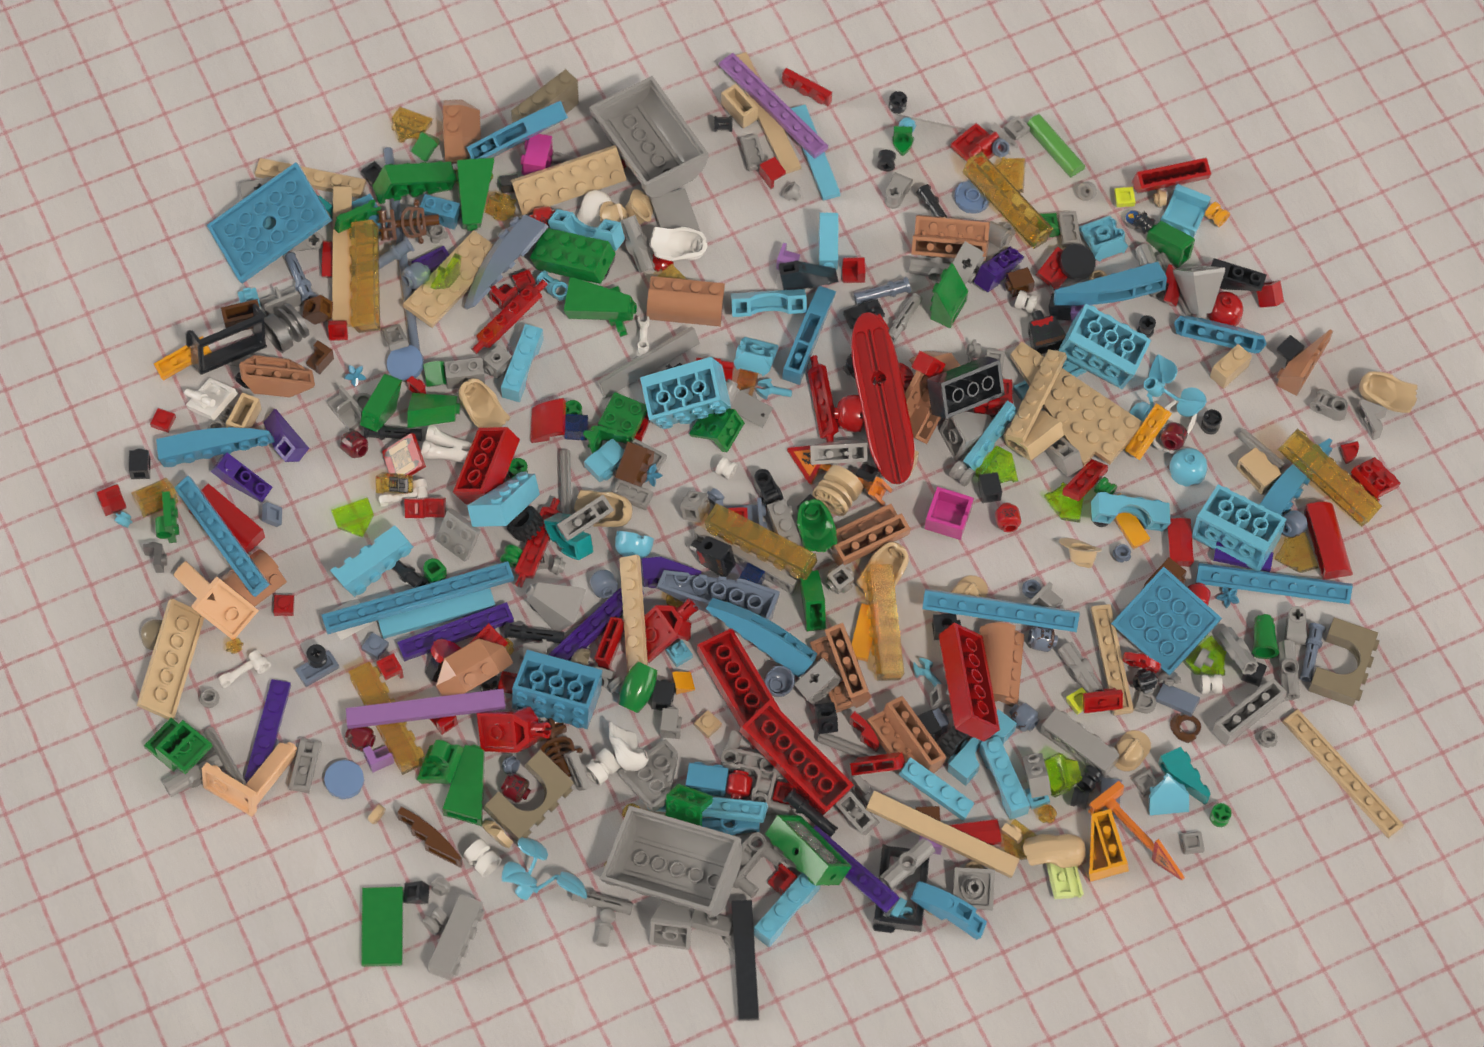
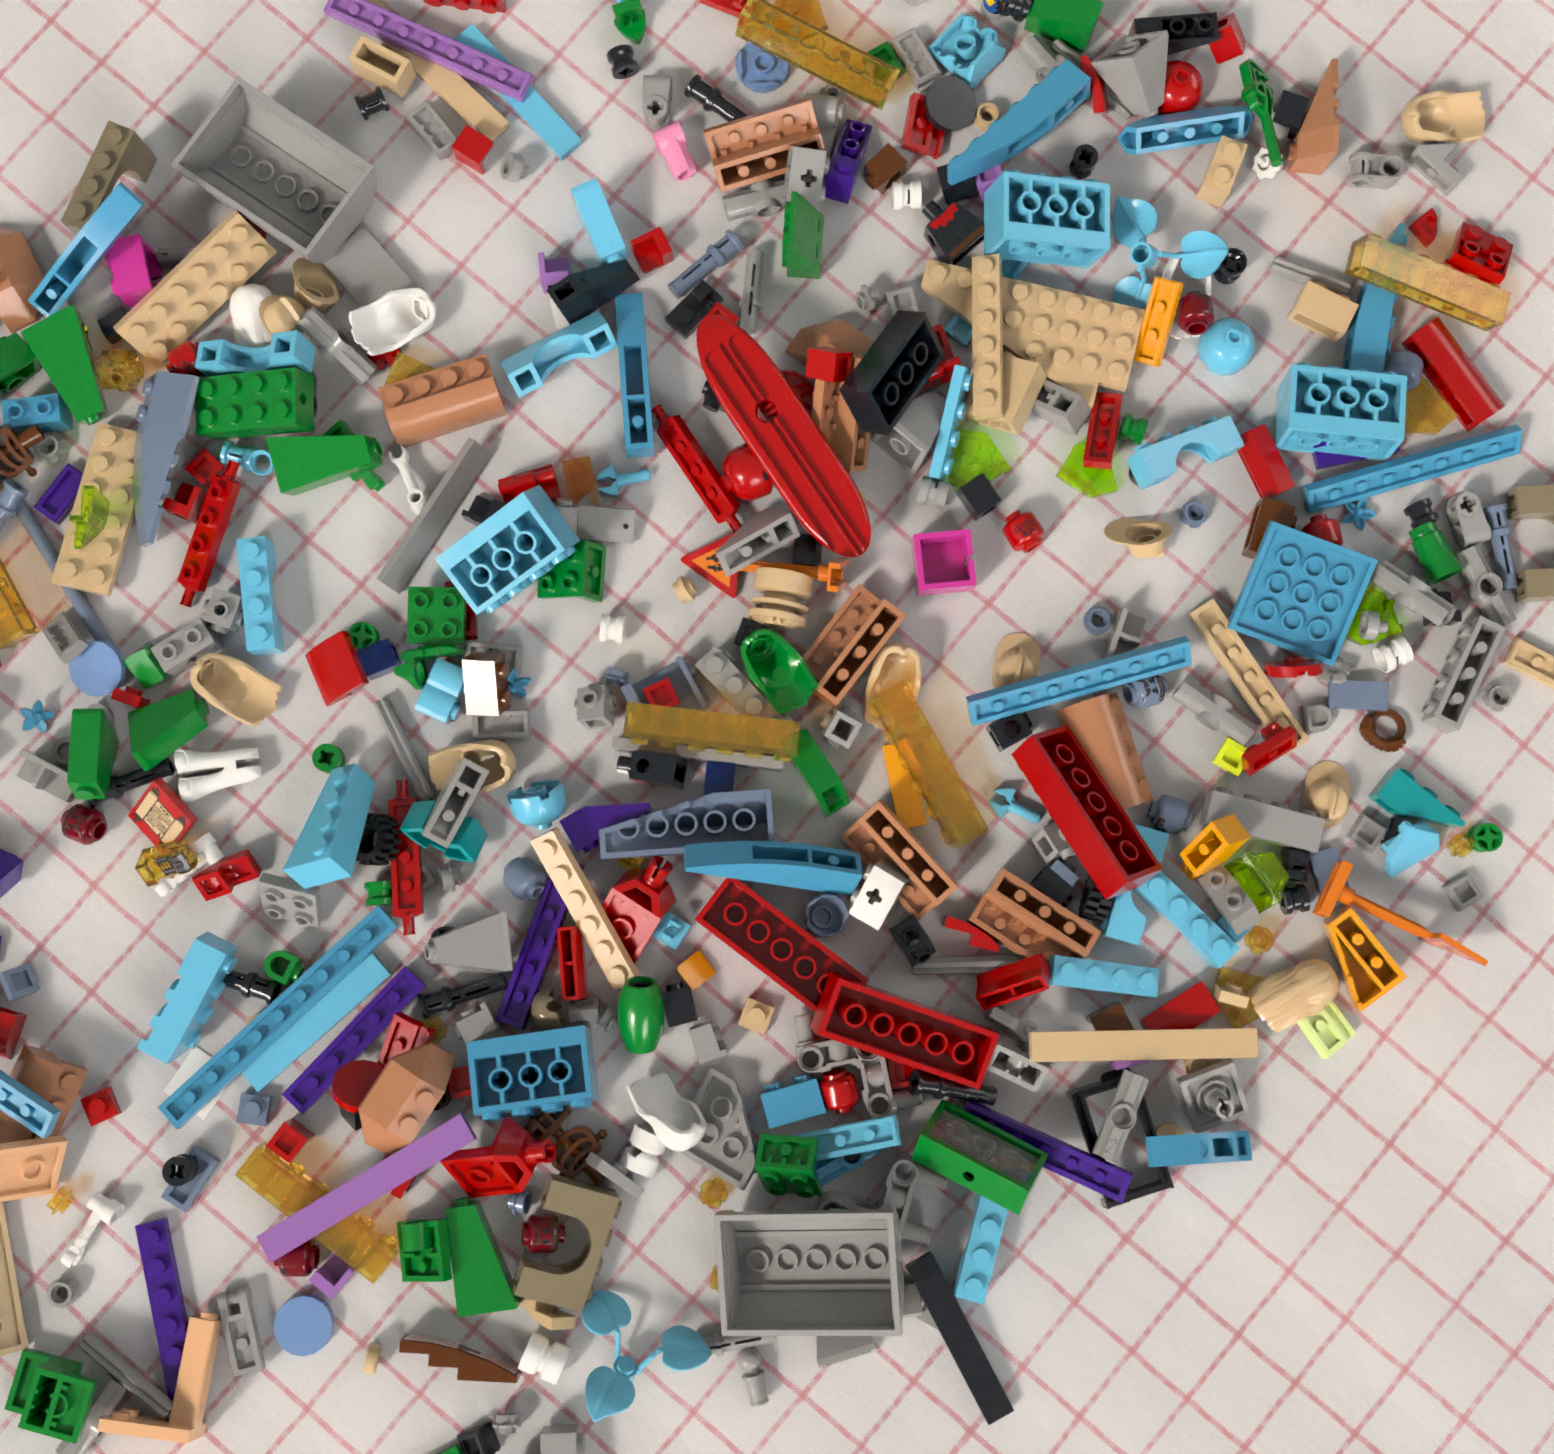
camera: 25 degrees left, 20 degrees up
(354, 517) = (136, 931): clear neon green slope -> none
(416, 275) = (49, 530): sand blue head -> none
(486, 463) = (280, 777): red brick -> none
(755, 355) = (576, 441): medium azure slope -> none
(769, 490) = (682, 635): black piece -> none
(781, 464) = (684, 589): none -> tan plate
(782, 879) = (958, 1200): red panel -> none
(895, 217) = (672, 144): none -> bright pink piece
(900, 908) = (1133, 1165): medium azure tile -> none
(1039, 736) = (1213, 846): none -> light orange hinge
(1132, 529) = (1190, 469): light orange tile -> none
(1144, 681) = (1306, 691): black gear -> none
(1203, 813) = (1460, 845): none -> clear yellow plate
(1264, 373) = (1262, 165): none -> white piece
(1267, 607) = (1421, 513): none -> black wheel
(1273, 332) = (1260, 99): none -> green piece

